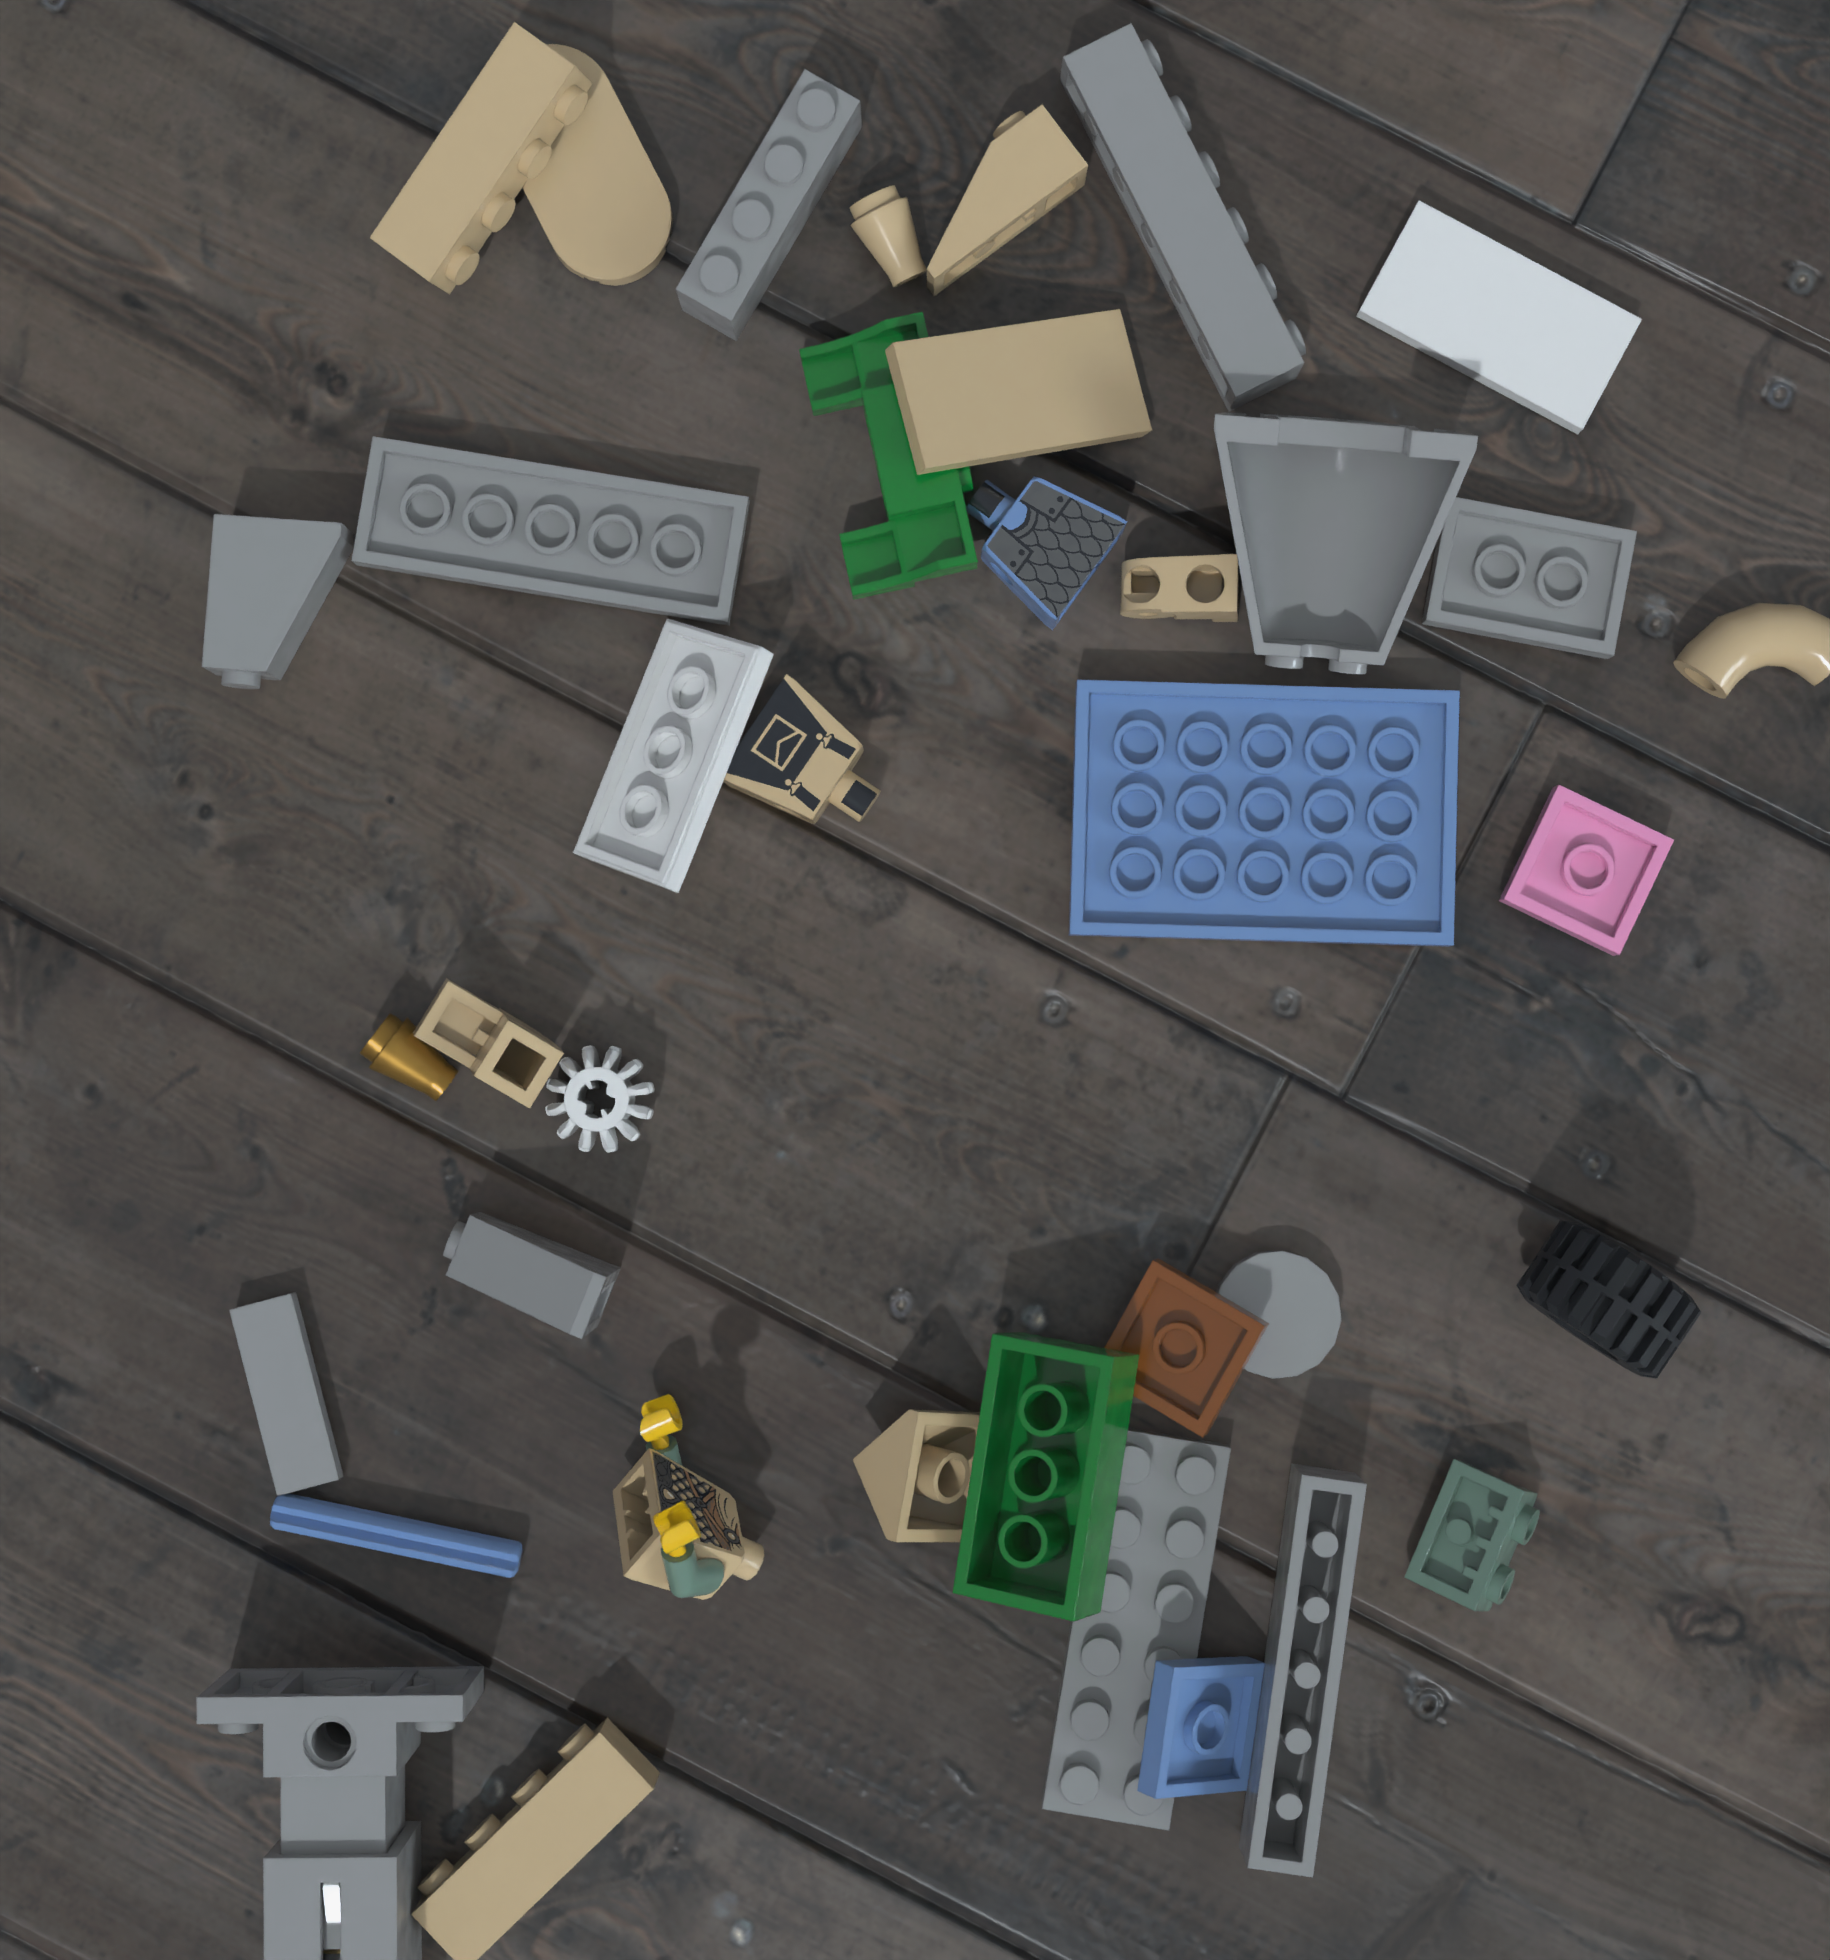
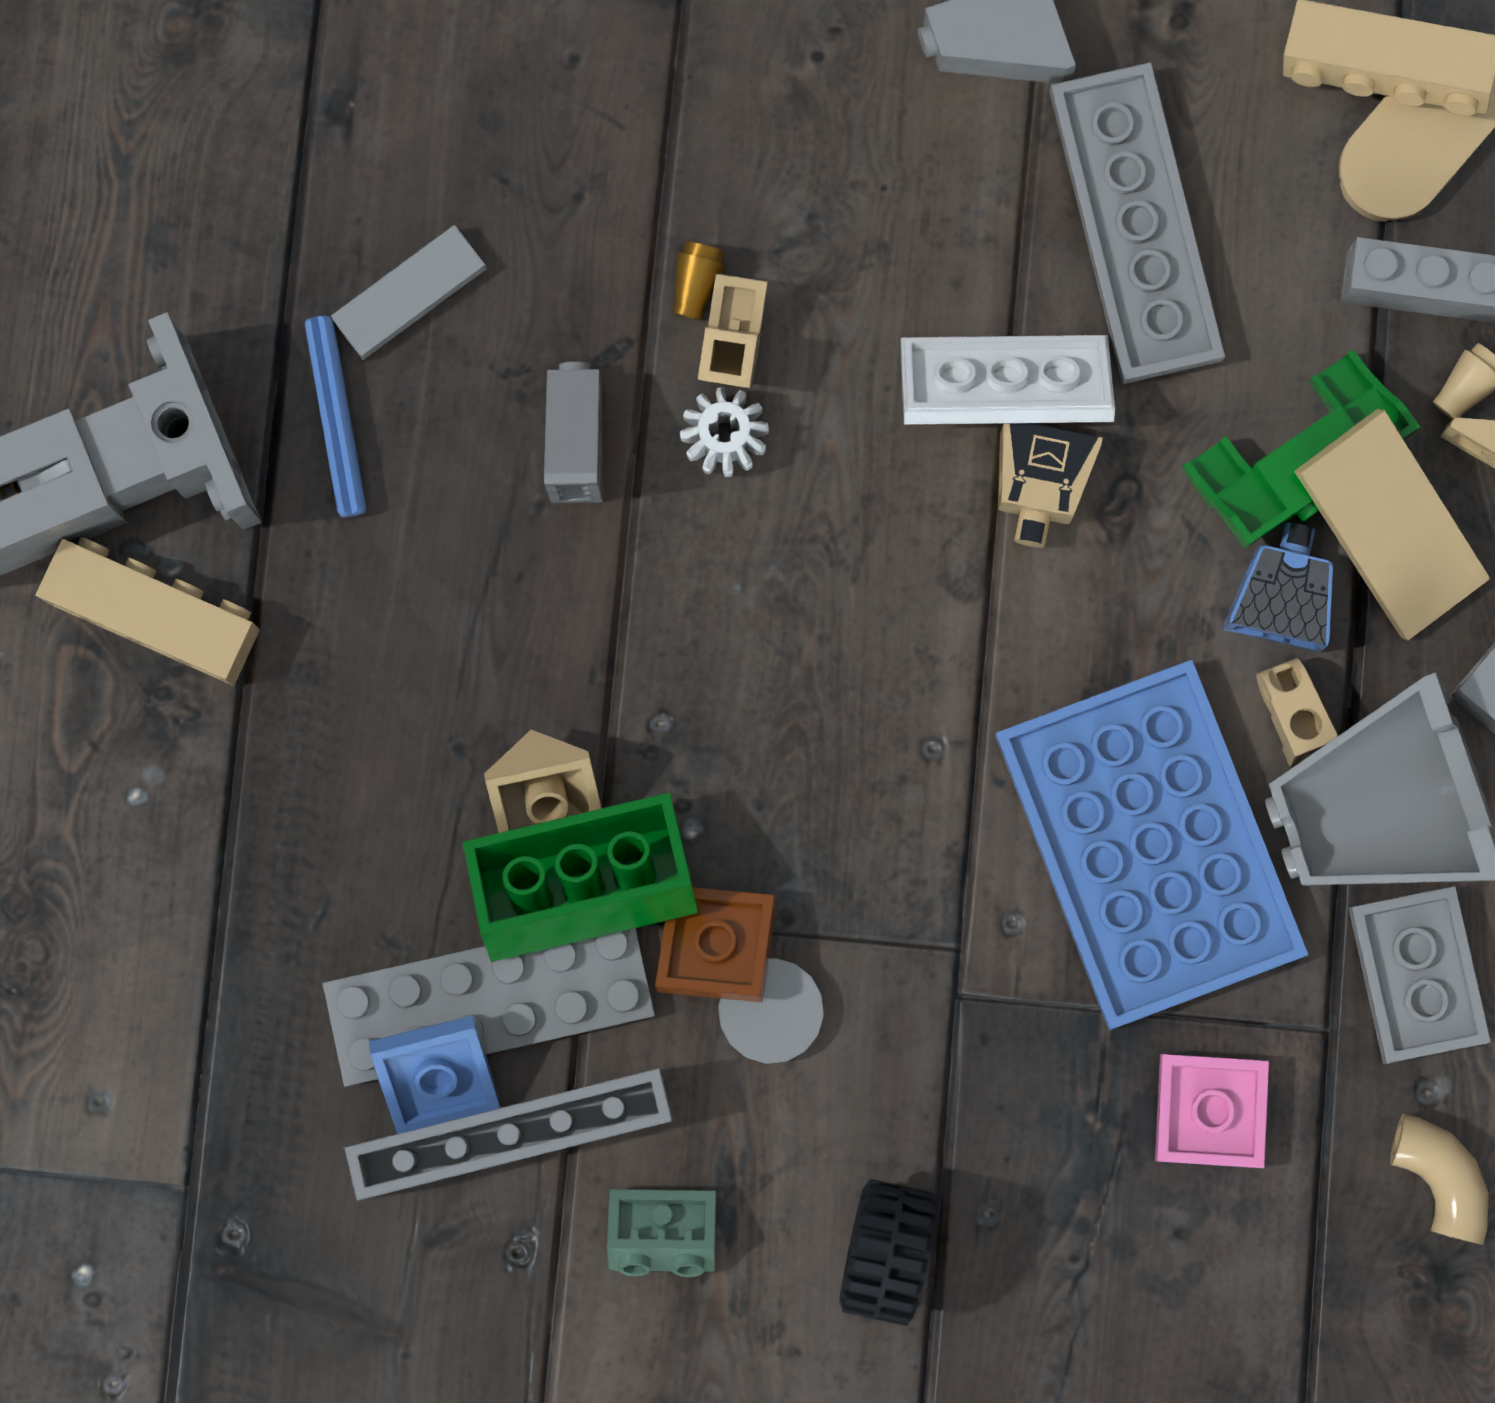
camera: 65 degrees right, 5 degrees down
(674, 1523) = (431, 613): torso -> none

